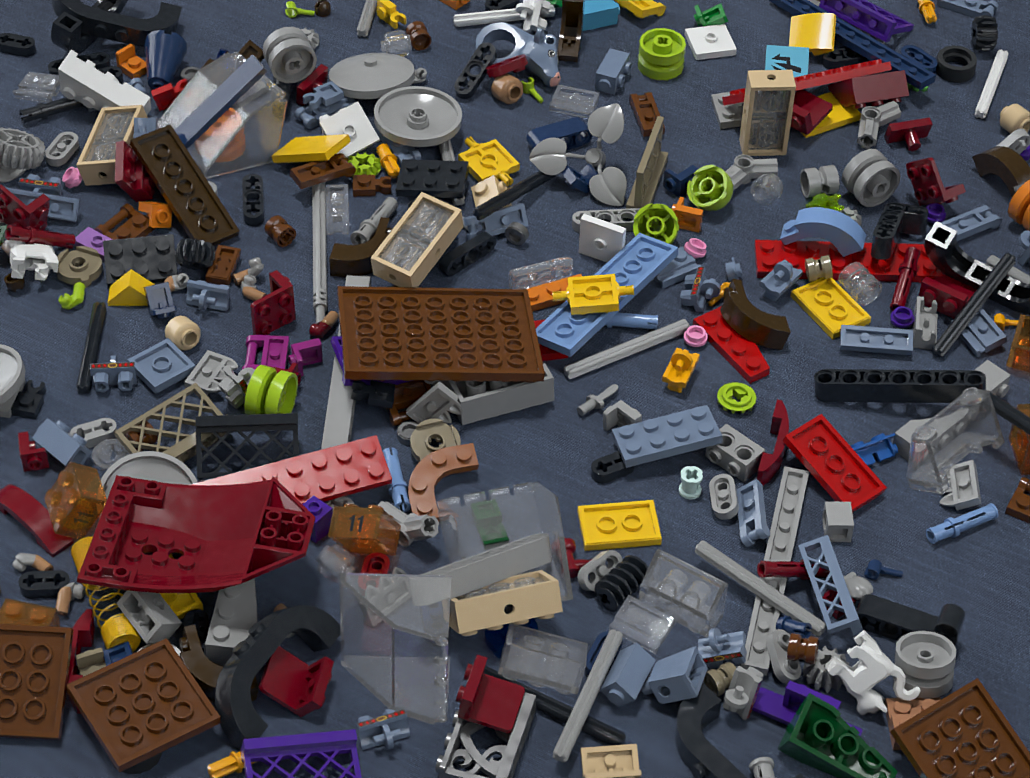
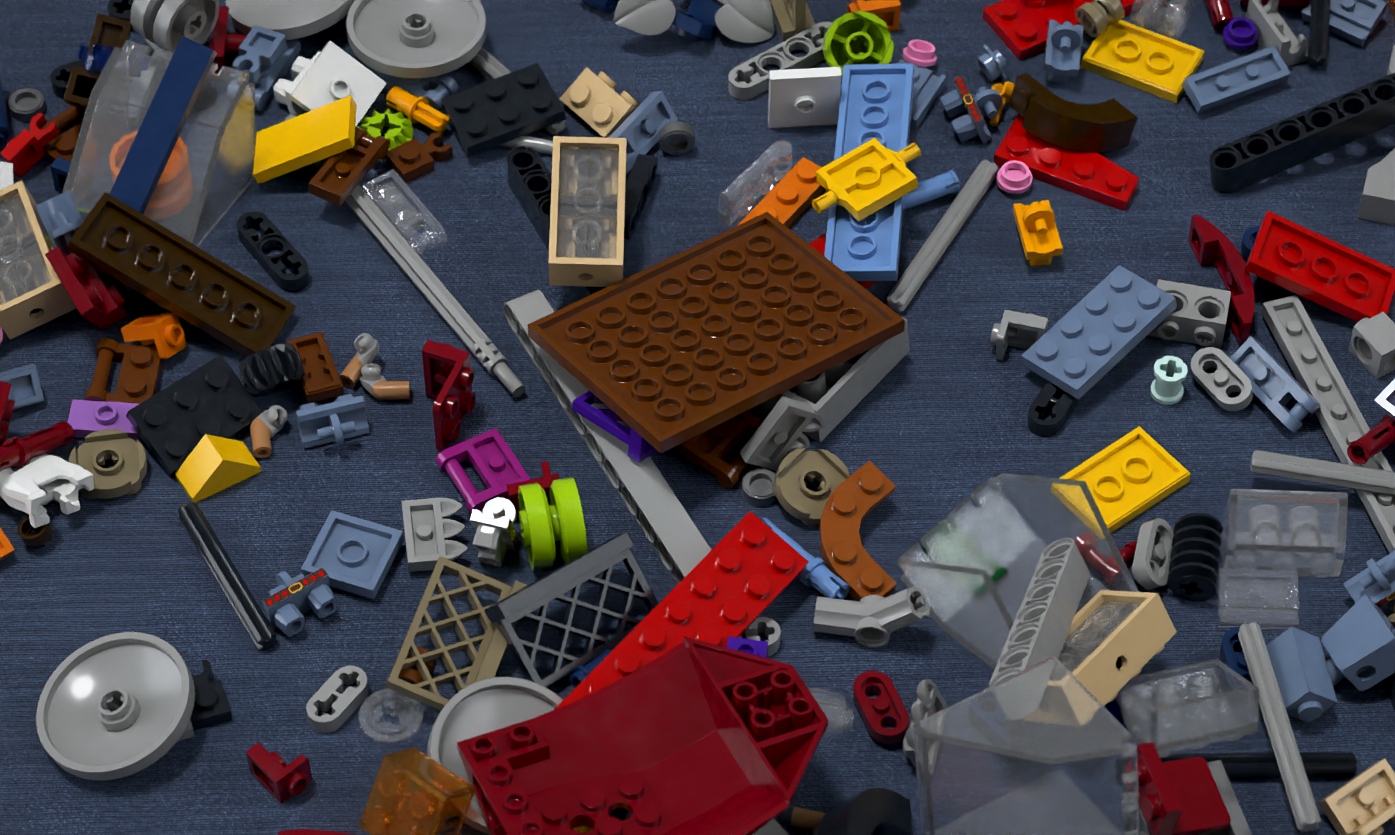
camera: 30 degrees left, 5 degrees up
(62, 444) = (315, 736): sand blue brick -> none
(69, 302) = (142, 515): lime arm -> none
(159, 300) = (273, 461): bracket -> none
(183, 332) = (345, 492): tan head -> none
(280, 231) = (354, 280): reddish brown wheel -> none
(306, 353) = (536, 443): magenta bracket -> none
(324, 326) = (529, 386): arm -> none
(356, 259) = (502, 269): dark brown arch -> none
(364, 529) = (838, 649): clear orange brick -> none
(368, 227) = (473, 219): light grey pin -> none
(377, 393) = (690, 456): black plate -> none
(489, 160) = (557, 47): yellow plate -> none
(511, 194) = (634, 86): black axle -> none
(596, 401) = (963, 325): light grey piece -> none
(741, 392) = (1126, 227): lime gear -> none
(879, 445) = (1350, 221): blue hinge -> none

